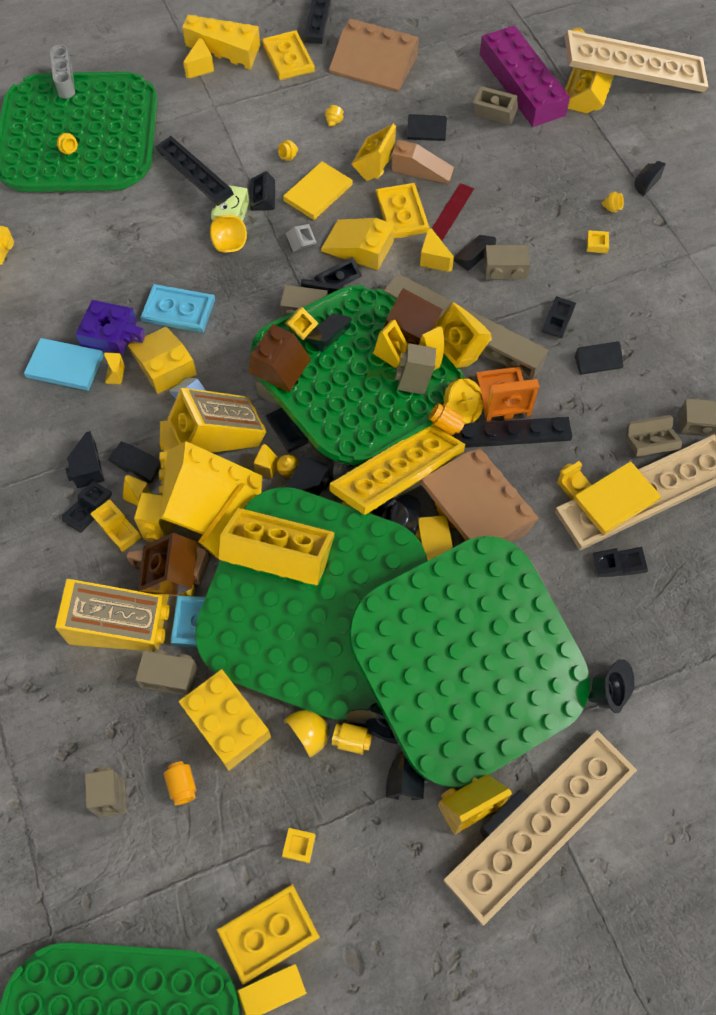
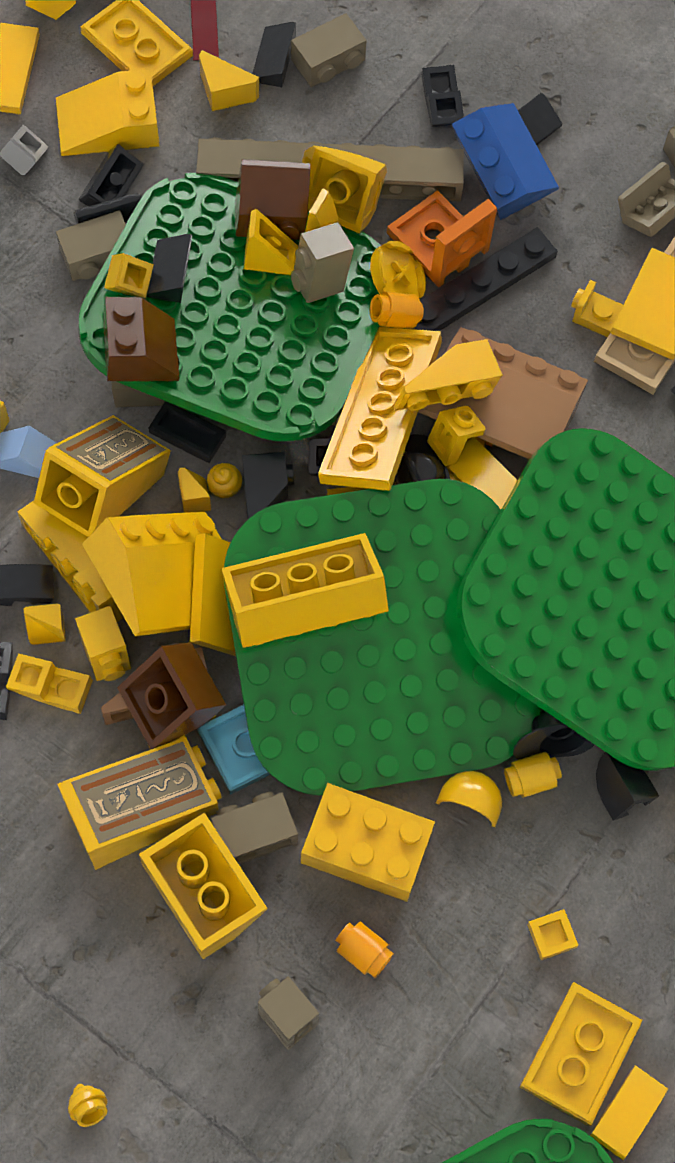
camera: 35 degrees left, 5 degrees up
(110, 687) = (203, 885): none -> yellow slope
(432, 502) = (452, 431): none -> yellow bracket
(449, 469) = (458, 374): none -> yellow slope
(571, 366) = (504, 158): none -> blue slope

